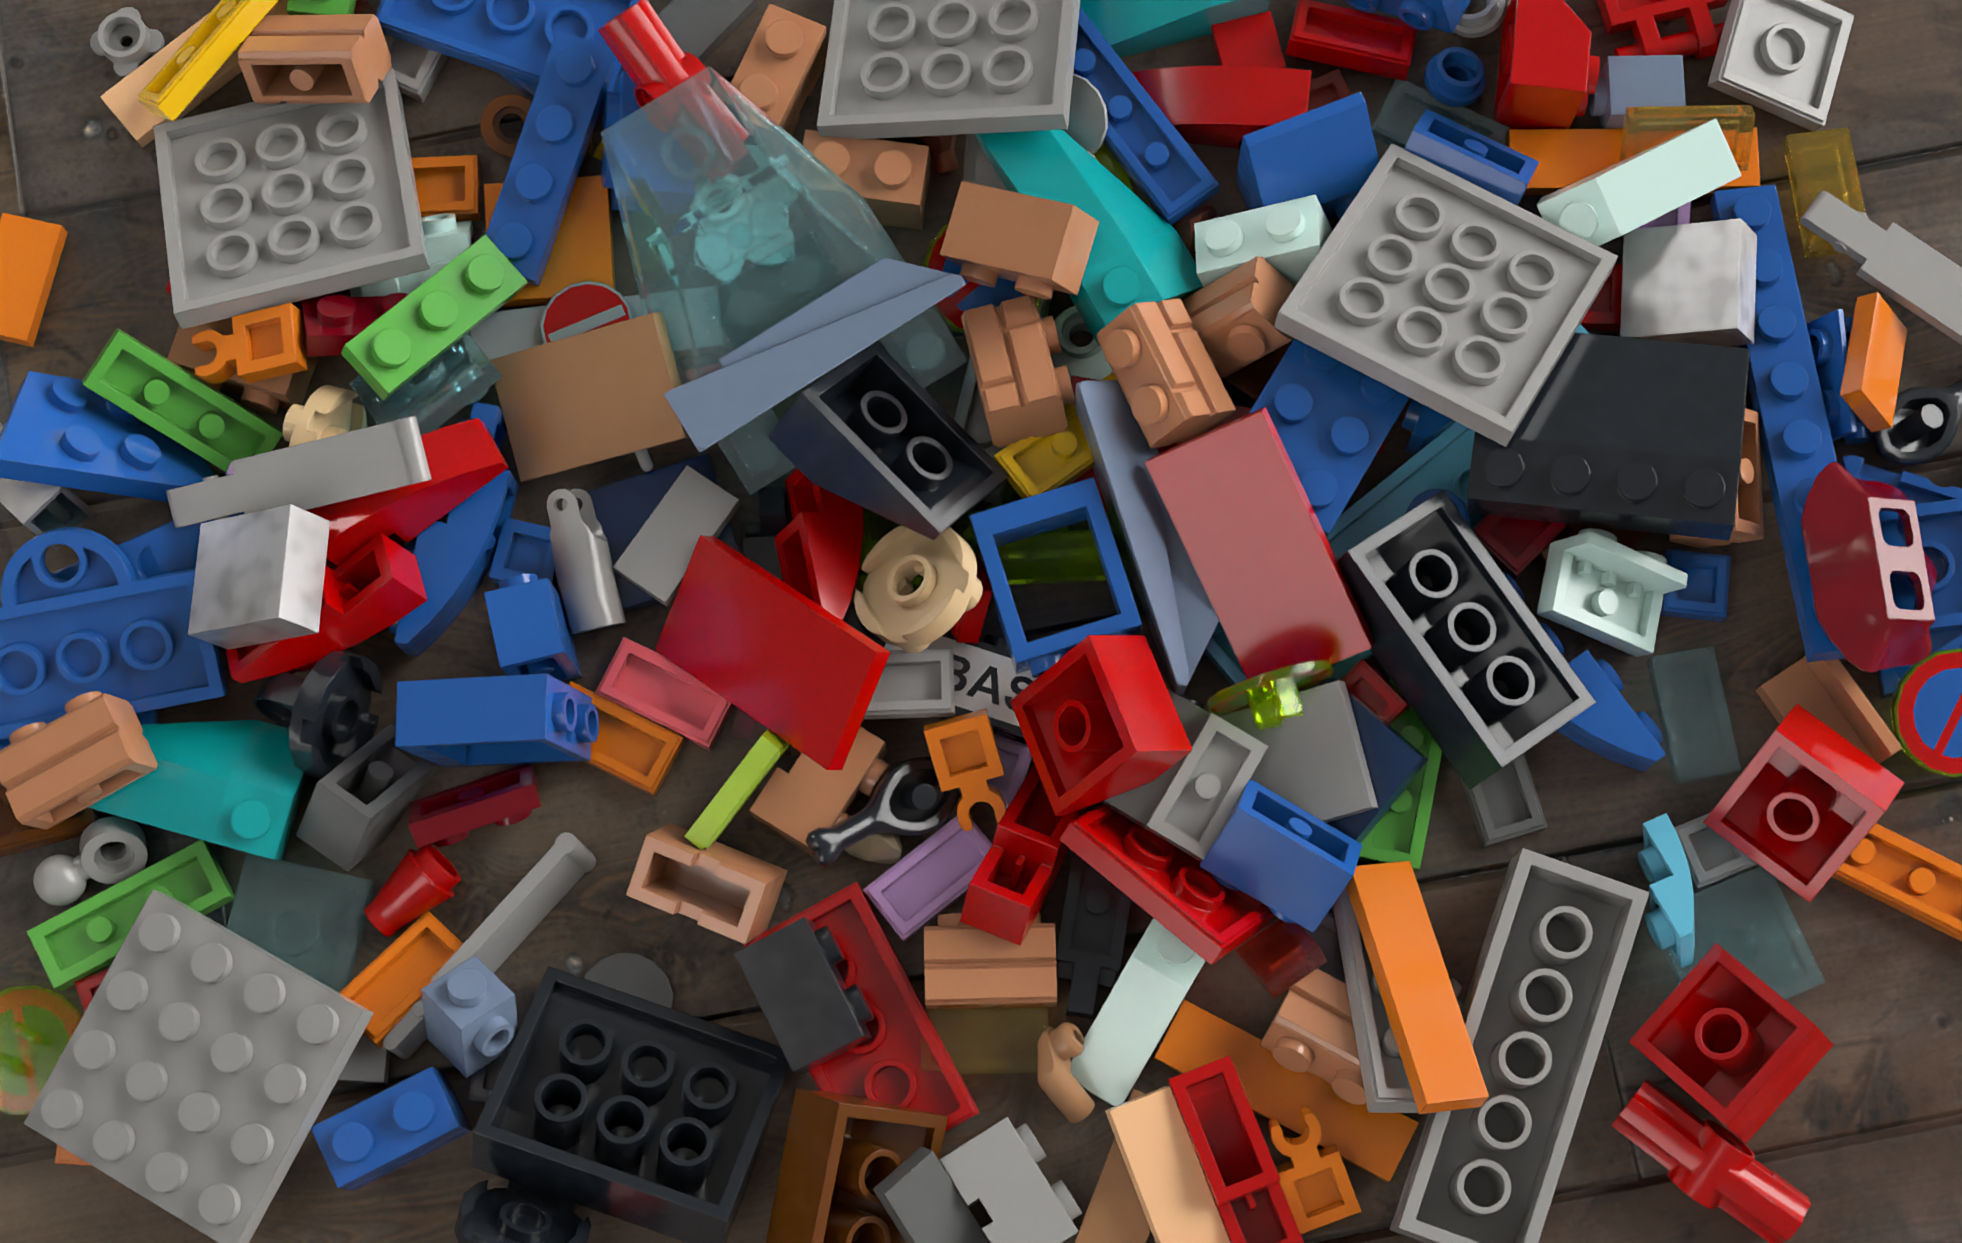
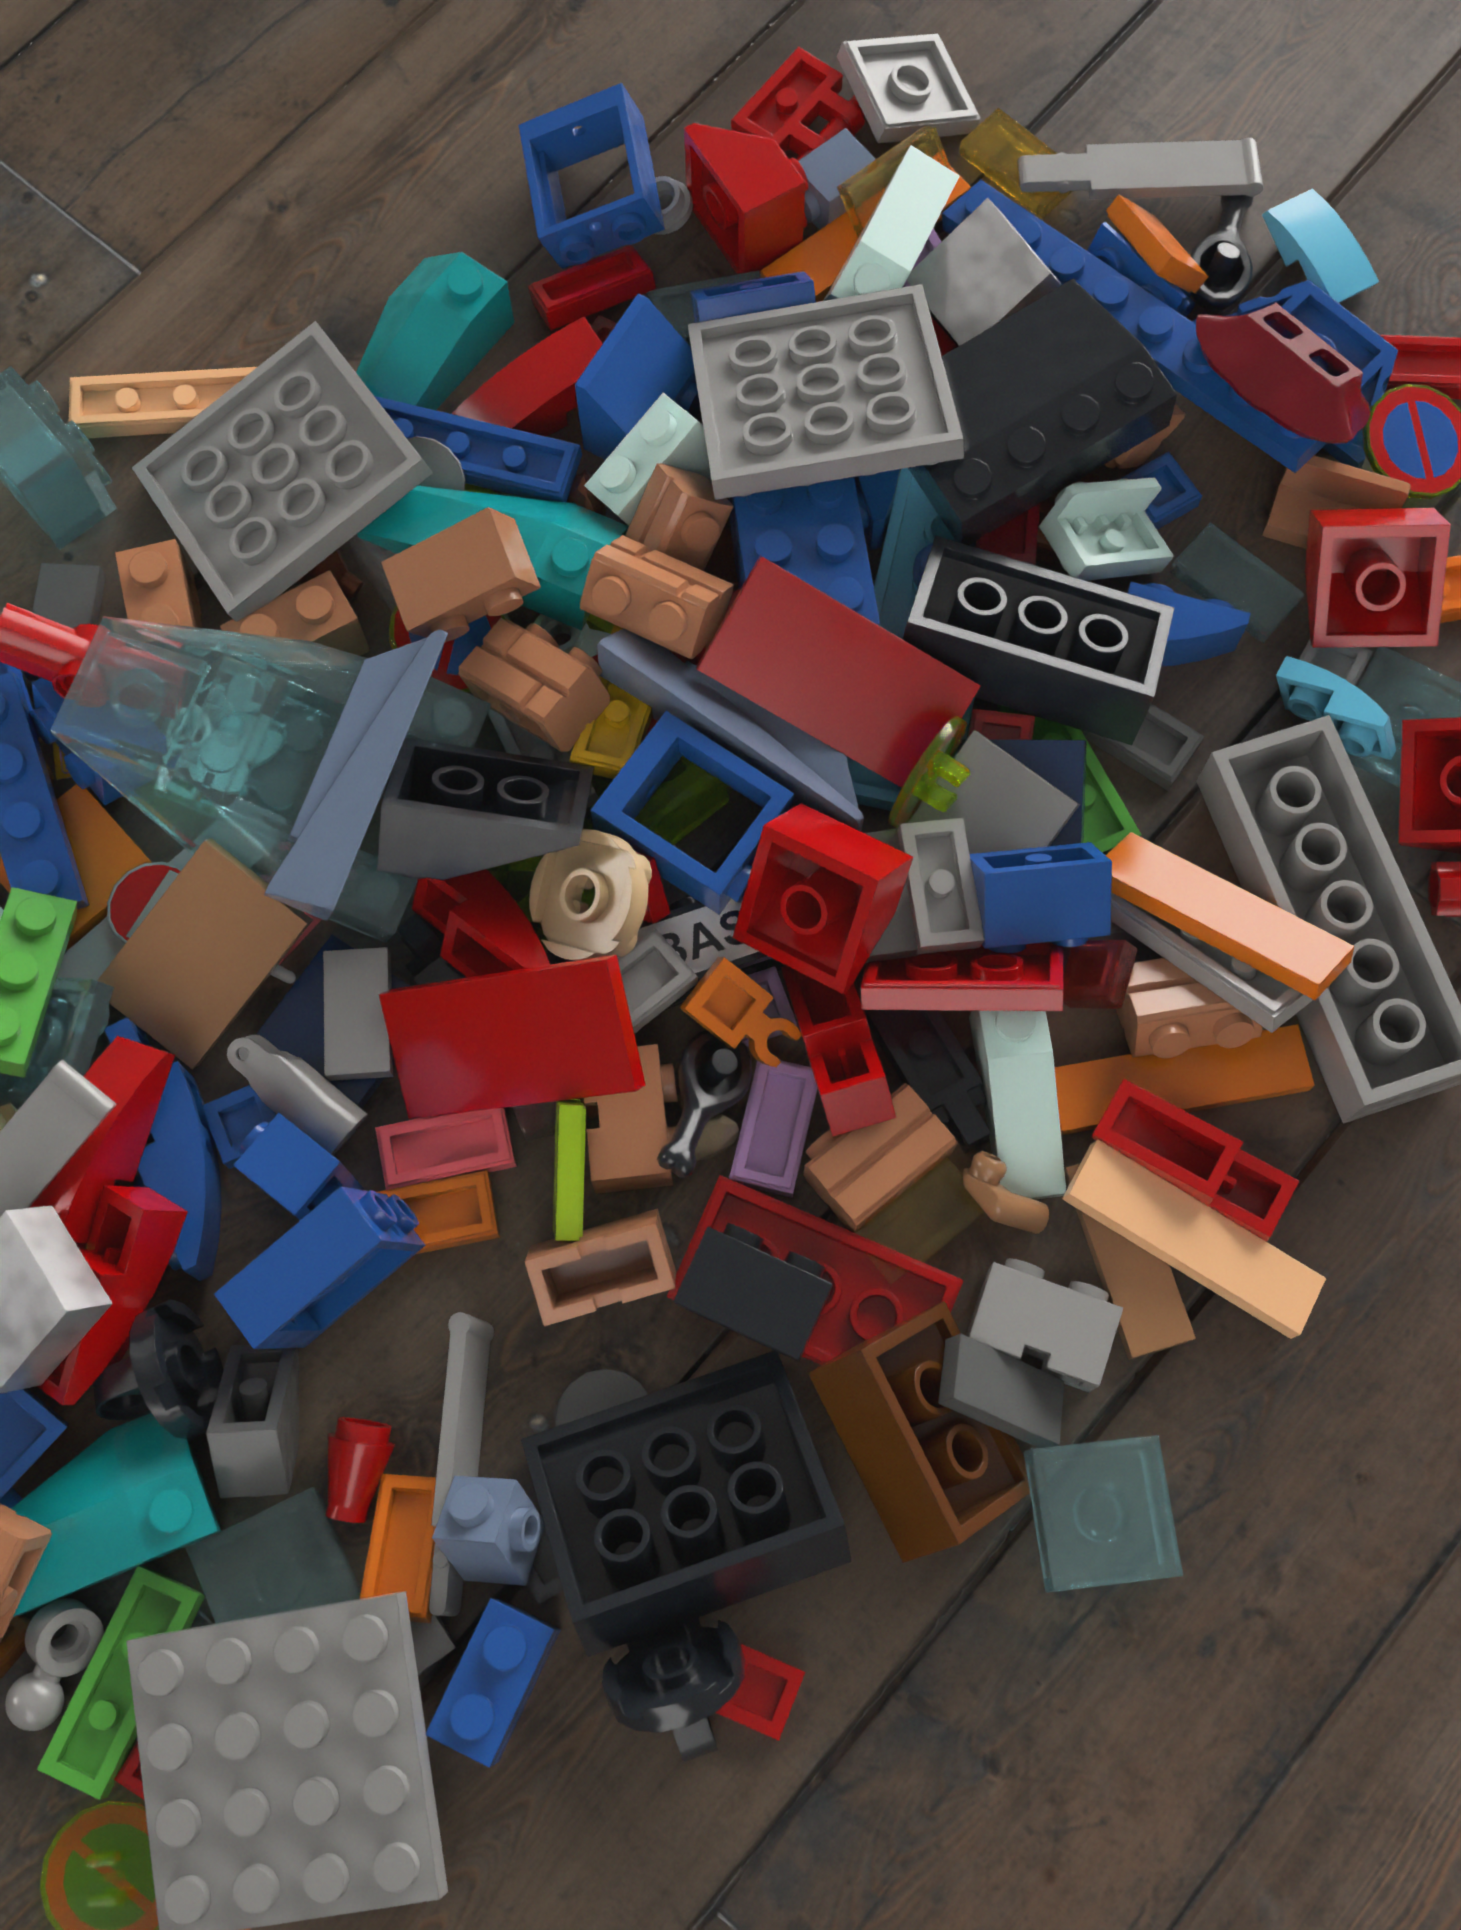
camera: 40 degrees left, 5 degrees down
(453, 813) = (342, 1376): dark red plate -> none
(1248, 42) = (510, 339): red tile -> none
(1314, 1178) = (1262, 1121): orange plate -> none
(1455, 77) = (690, 260): blue plate -> none

